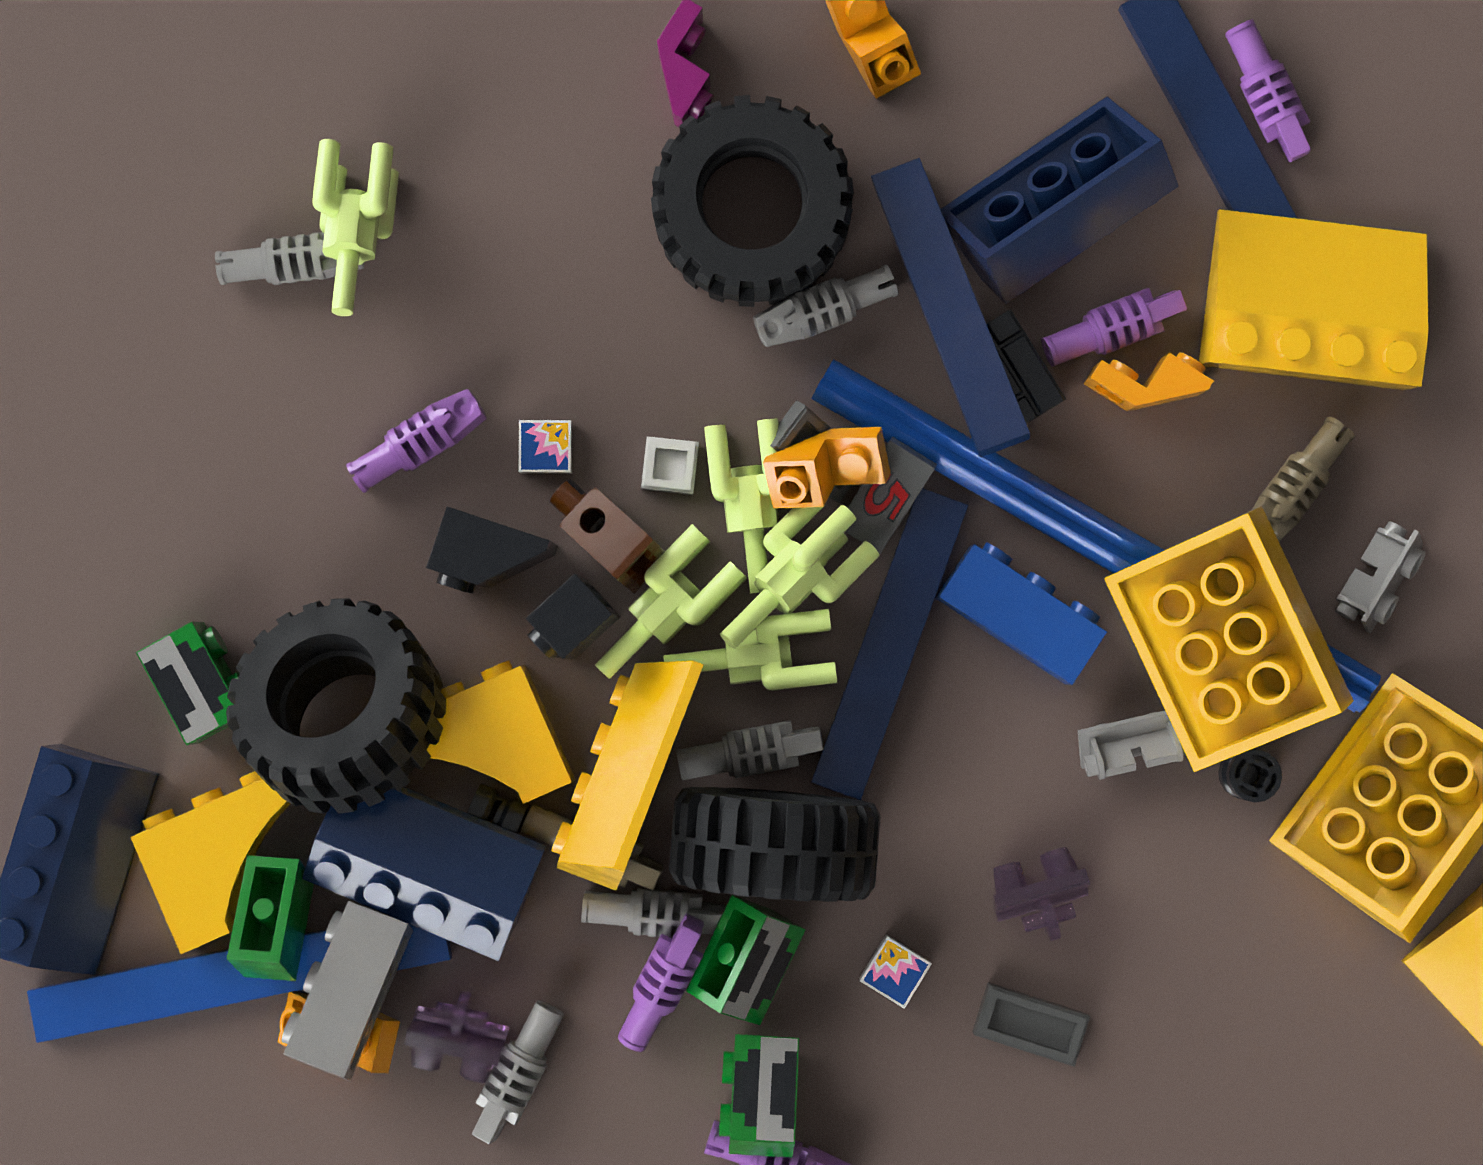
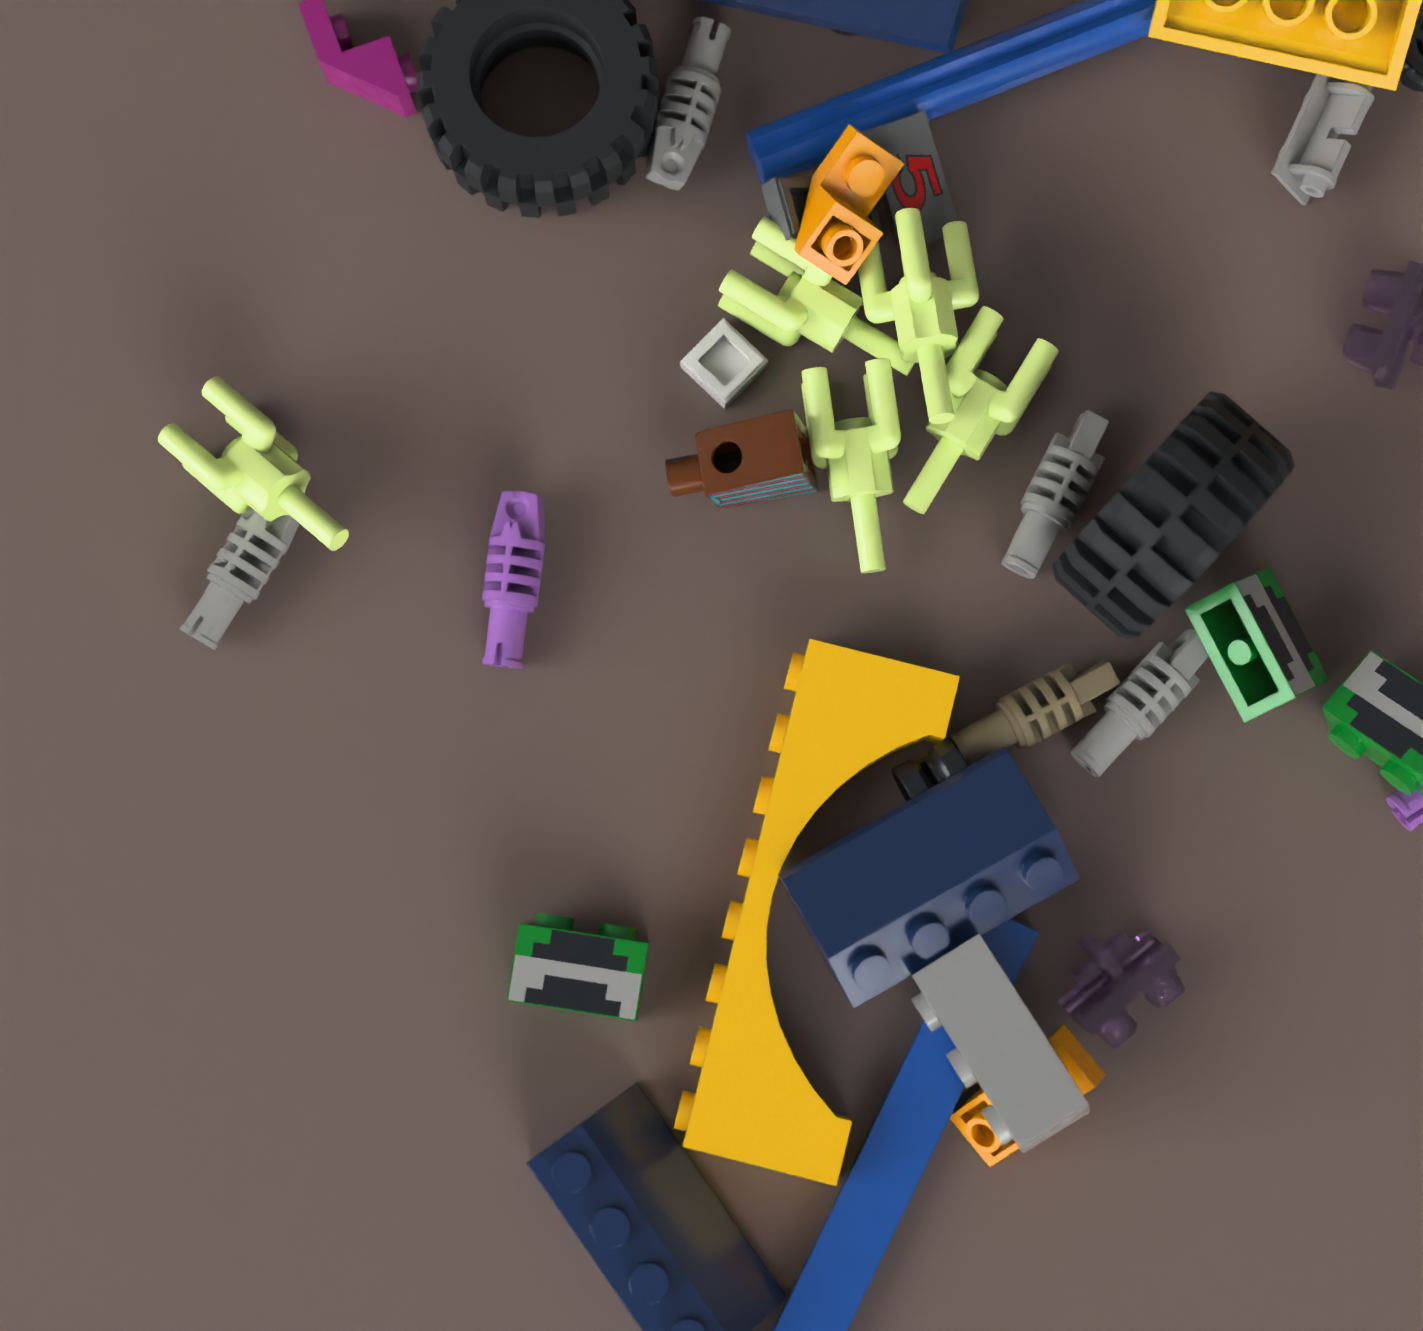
camera: 55 degrees left, 5 degrees down
(270, 918) = (869, 1068): green brick -> none
(300, 661) = (643, 822): black tyre -> none
(482, 552) = (671, 586): black slope -> none
(517, 1073) = (1206, 962): light grey hinge -> none
(545, 447) = (614, 465): tile -> none
(570, 619) = (807, 545): black brick -> none
(627, 770) = (997, 603): yellow slope -> none
(662, 982) = (1217, 739): medium lavender hinge -> none
(889, 643) = (1054, 290): dark blue tile -> none
(895, 971) = (1369, 519): tile -> none
(1022, 612) = (1120, 142): blue brick -> none

